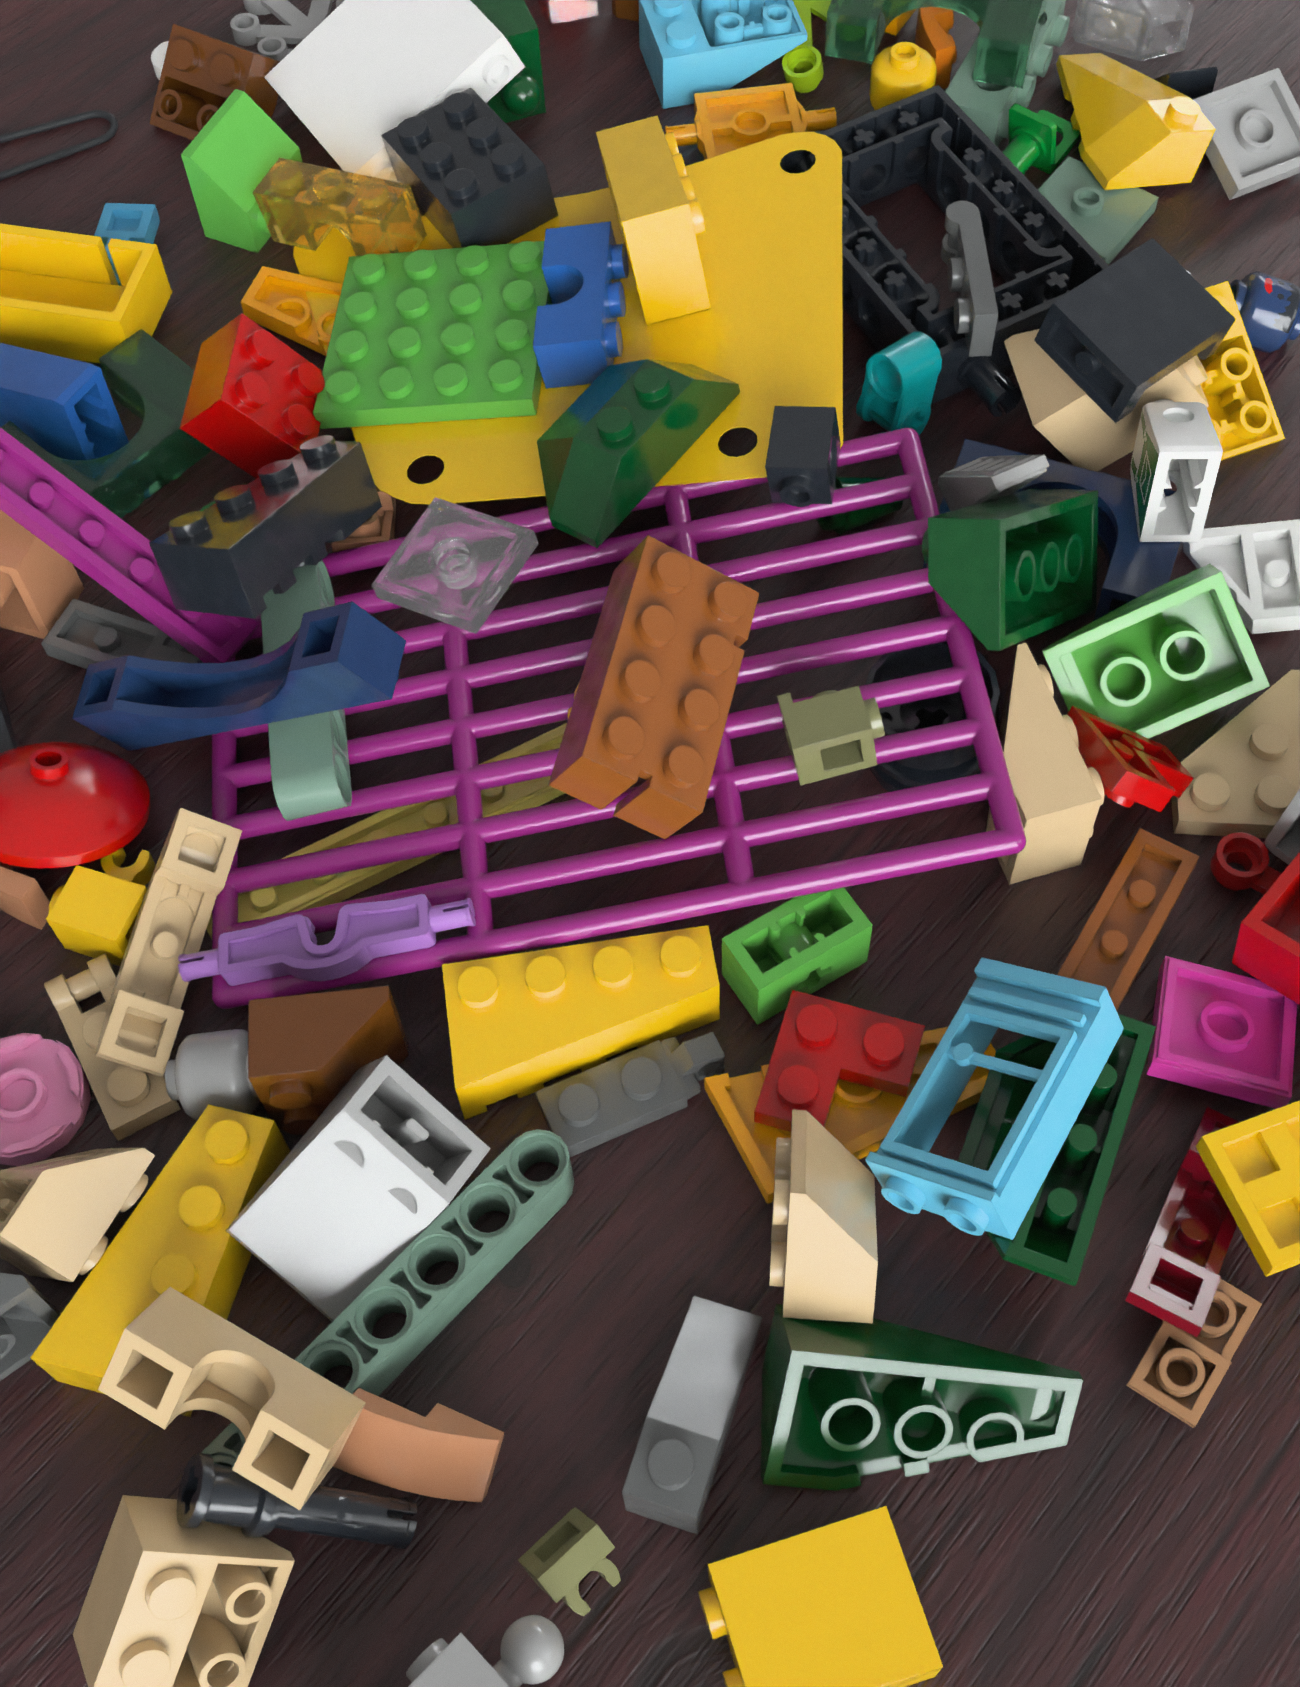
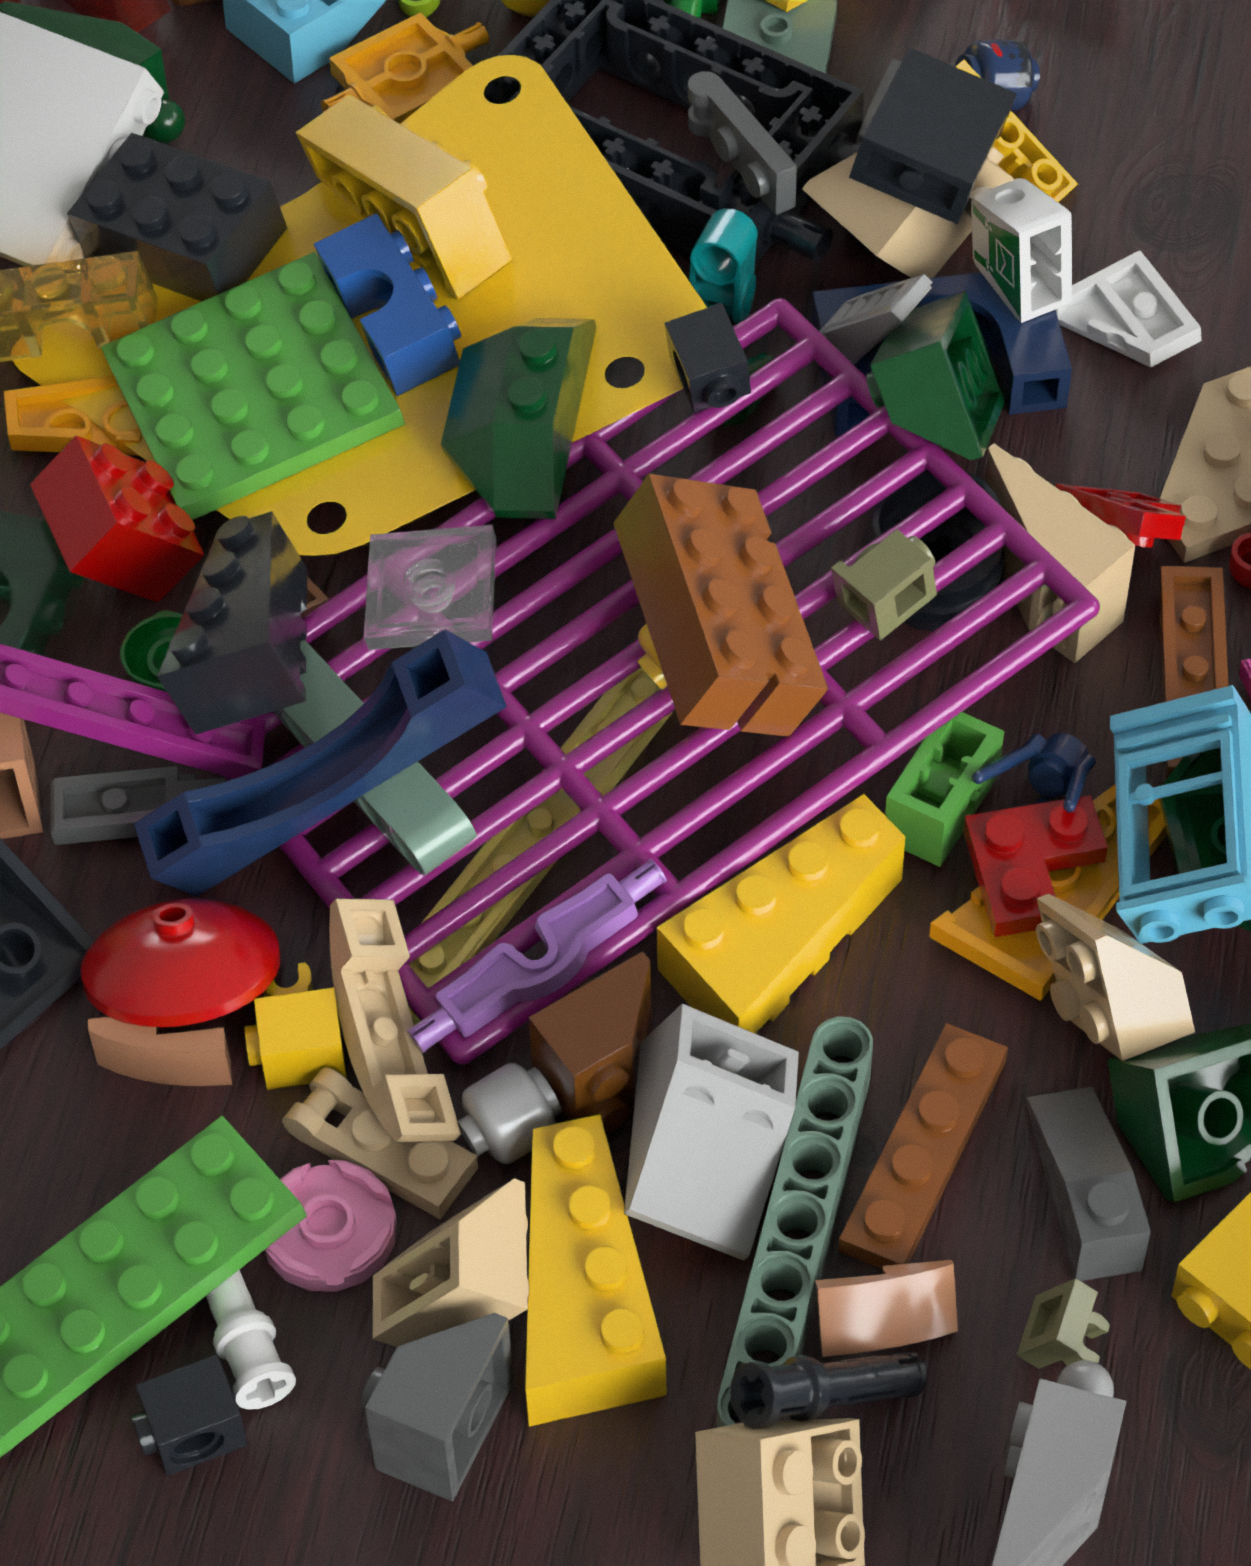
camera: 30 degrees left, 5 degrees down
(193, 1359) = (788, 1311): tan arch -> none
(565, 1298) = (923, 1149): none -> dark orange plate
(628, 1091) = (869, 963): dark grey hinge -> none
(911, 985) = (1054, 769): none -> dark blue plant
(1160, 657) = (1102, 409): bright green slope -> none

